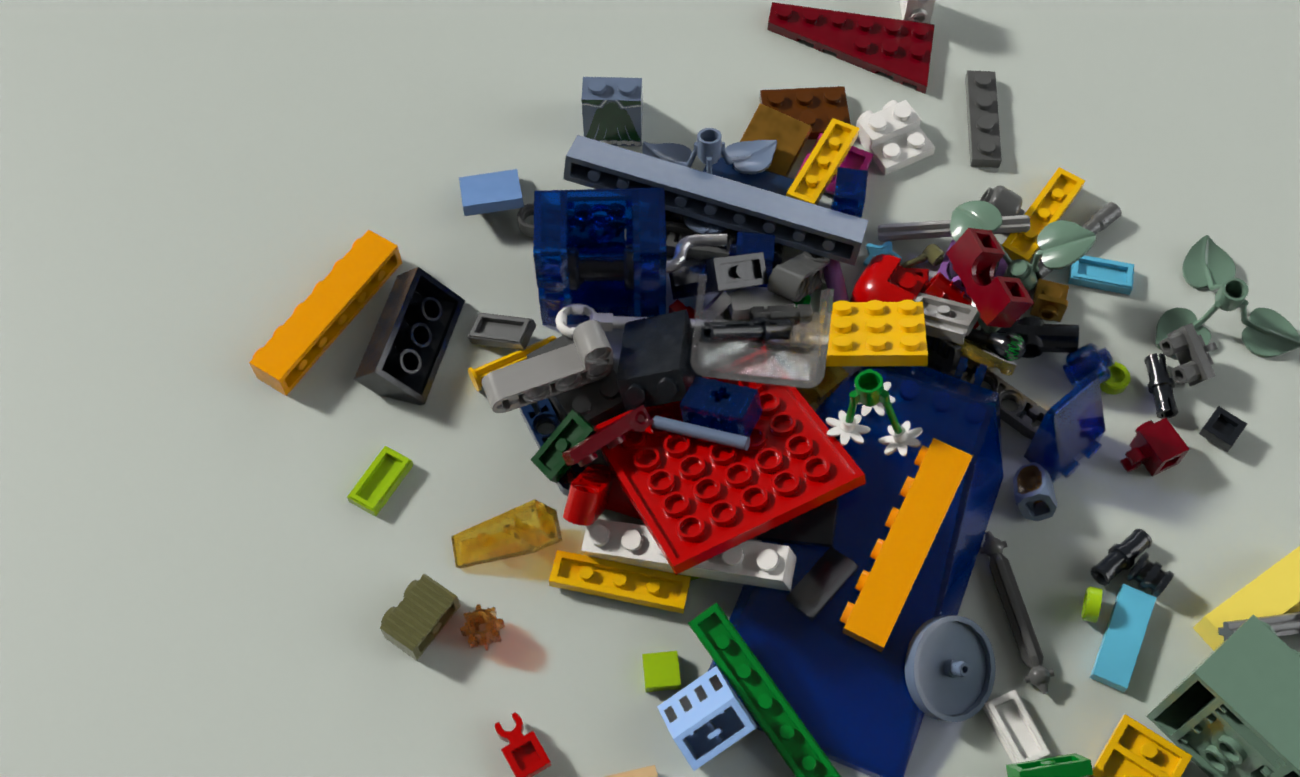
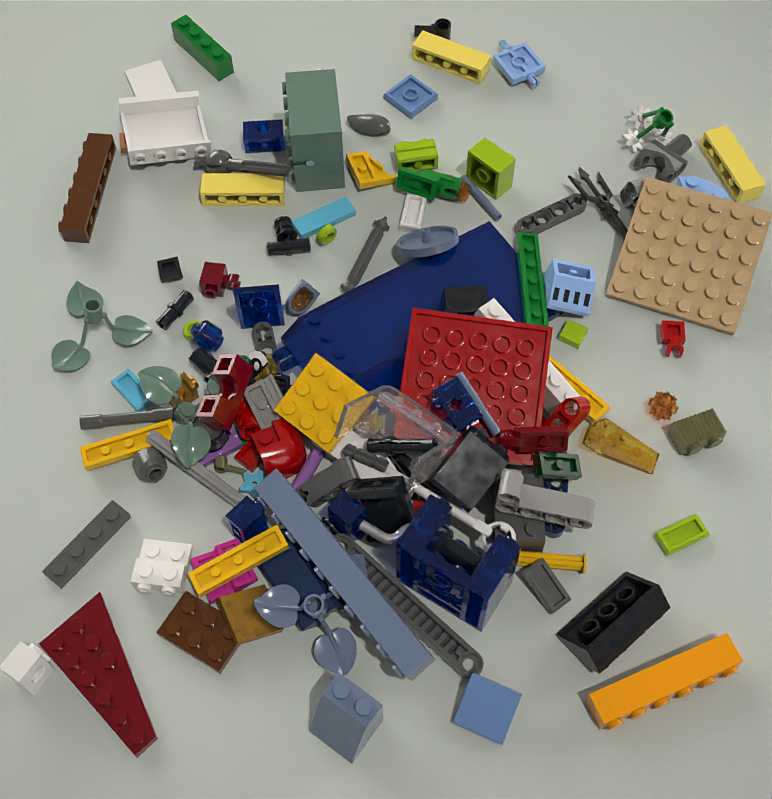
camera: 145 degrees left, 0 degrees up
(873, 394) = (378, 329): plant -> none
(906, 545) = (407, 283): light orange brick -> none
(1191, 354) = (146, 307): dark grey hips -> none

